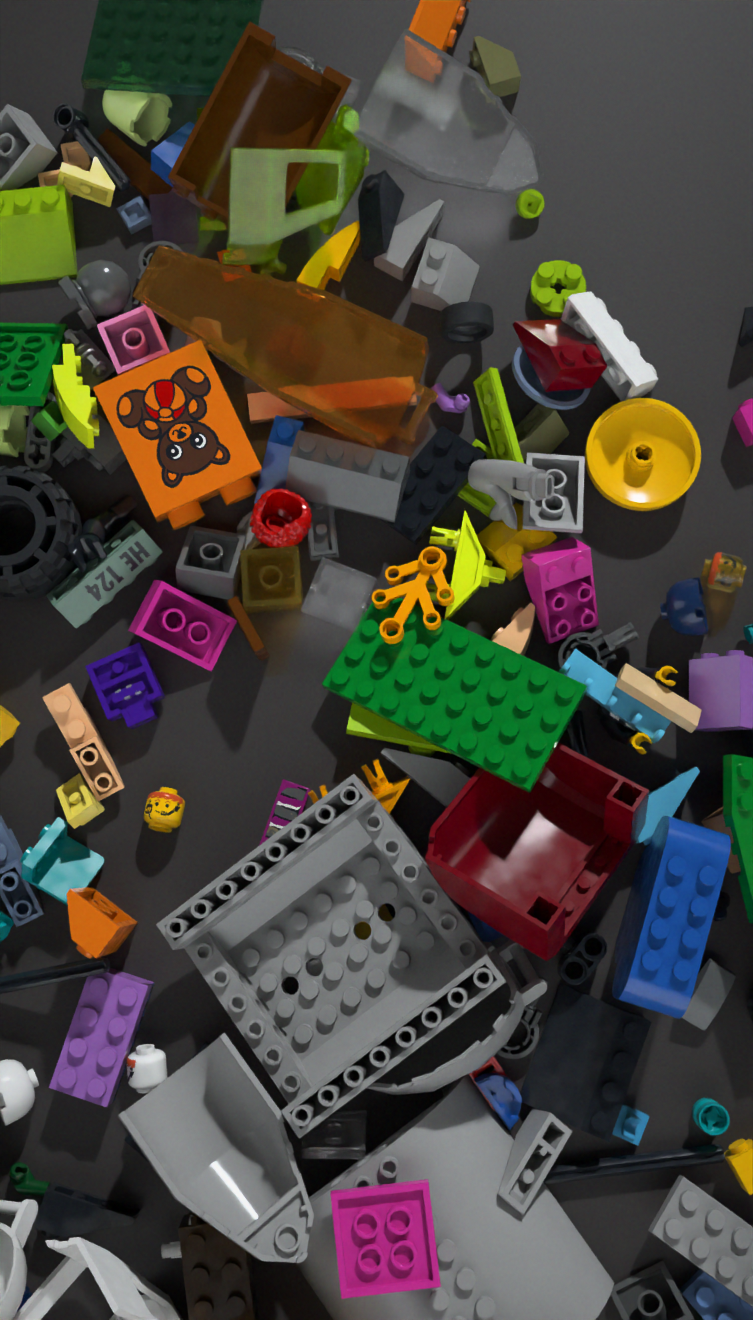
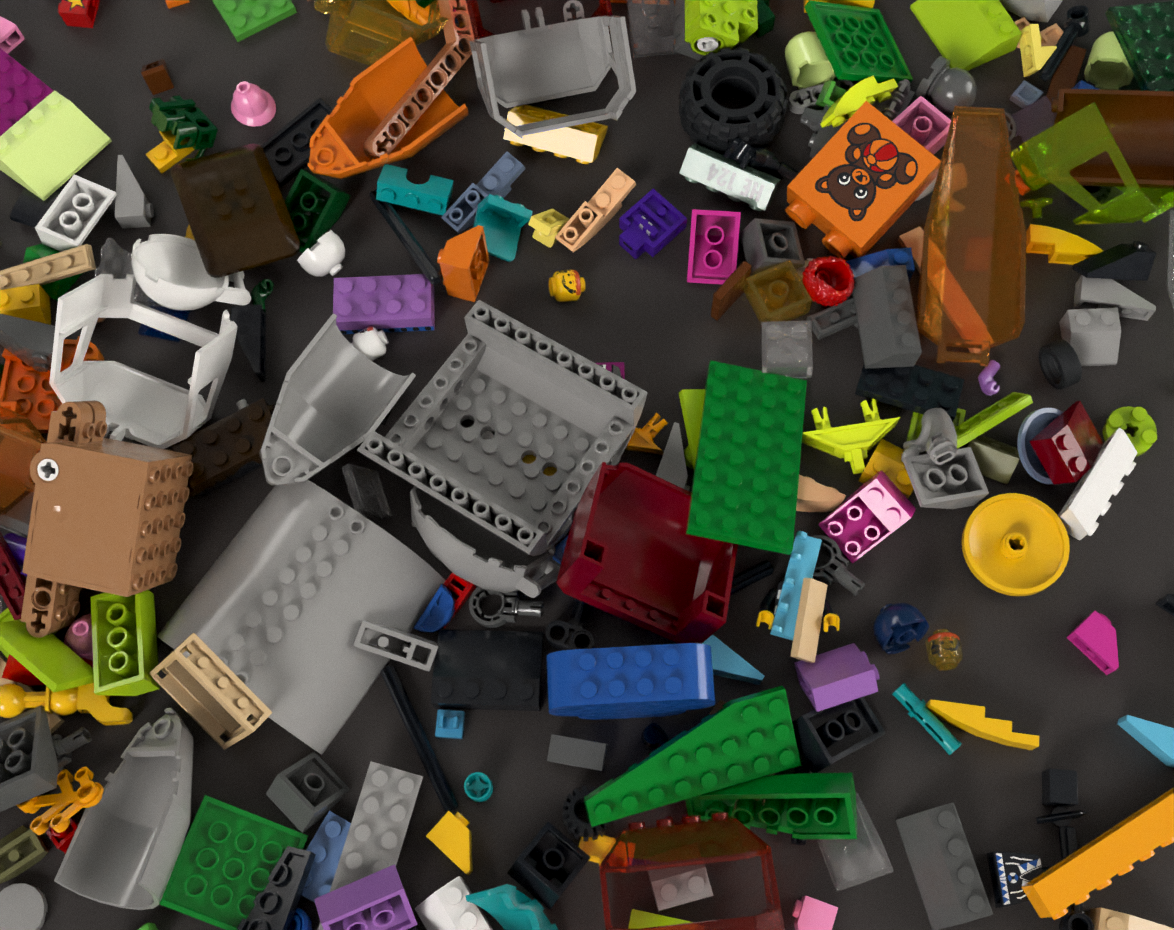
camera: 70 degrees right, 10 degrees down
(385, 1239) = (303, 537): dark pink plate -> none
(414, 591) = (842, 406): light orange plant -> none

